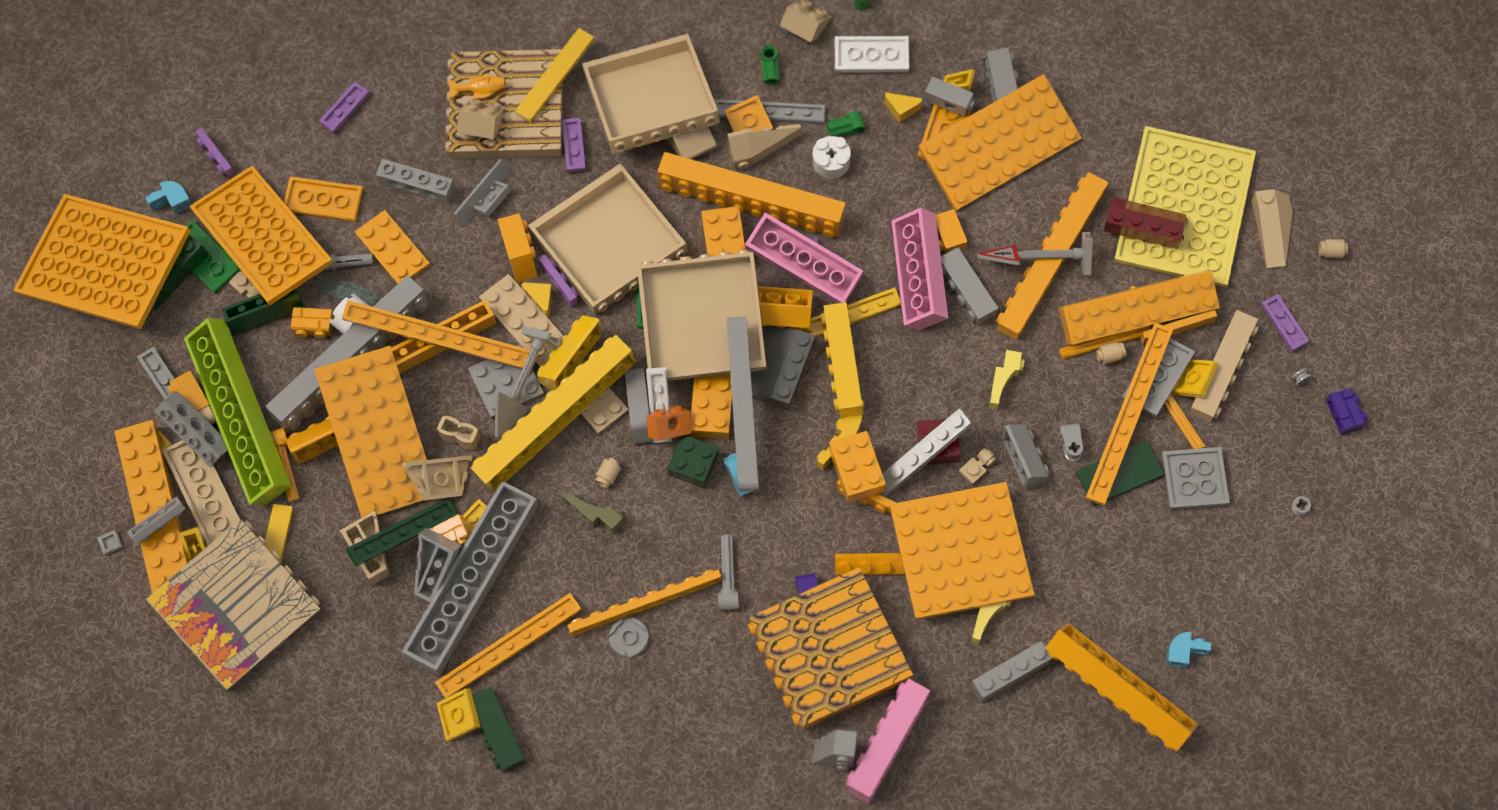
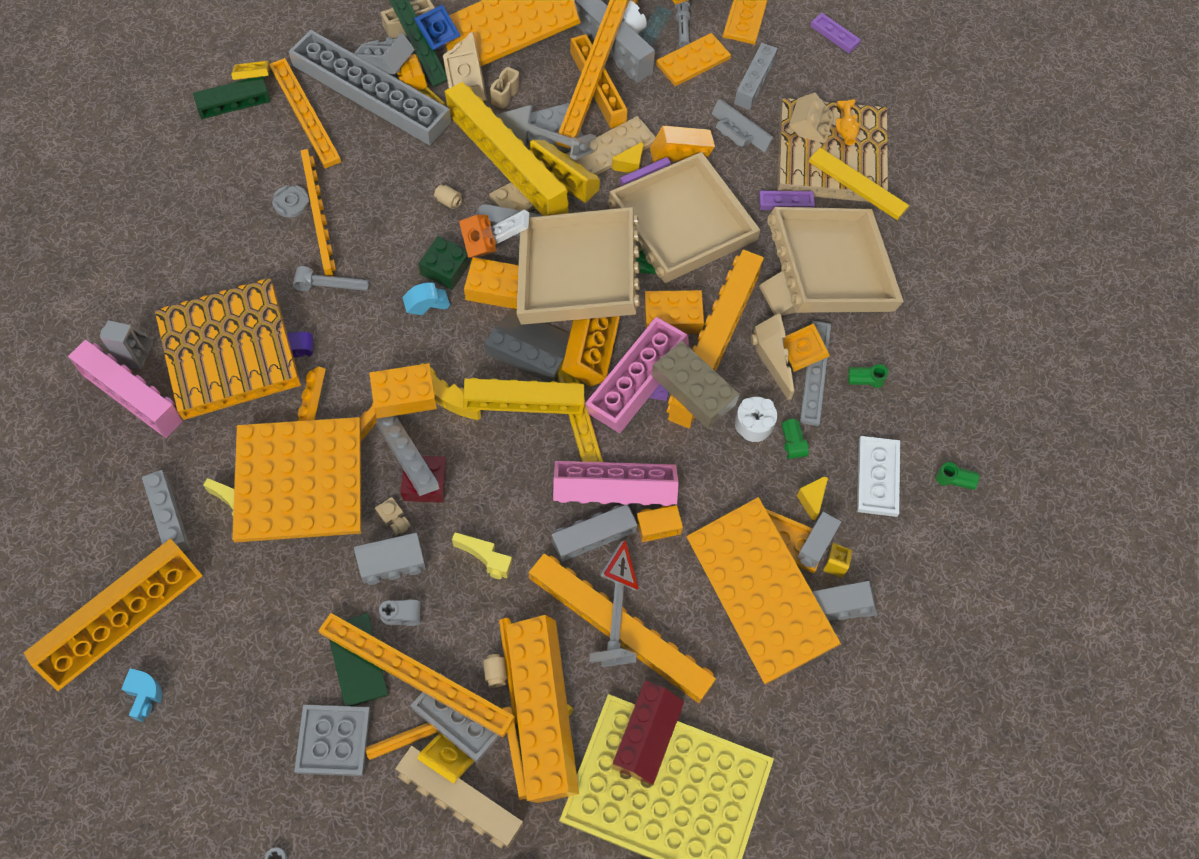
camera: 90 degrees right, 5 degrees down
(391, 509) = (437, 27): none -> blue slope
(608, 517) = (403, 193): olive slope -> none
(742, 404) = (481, 289): light grey beam -> none
(805, 20) = (920, 415): tan slope -> none
(822, 198) = (695, 384): none -> dark tan brick

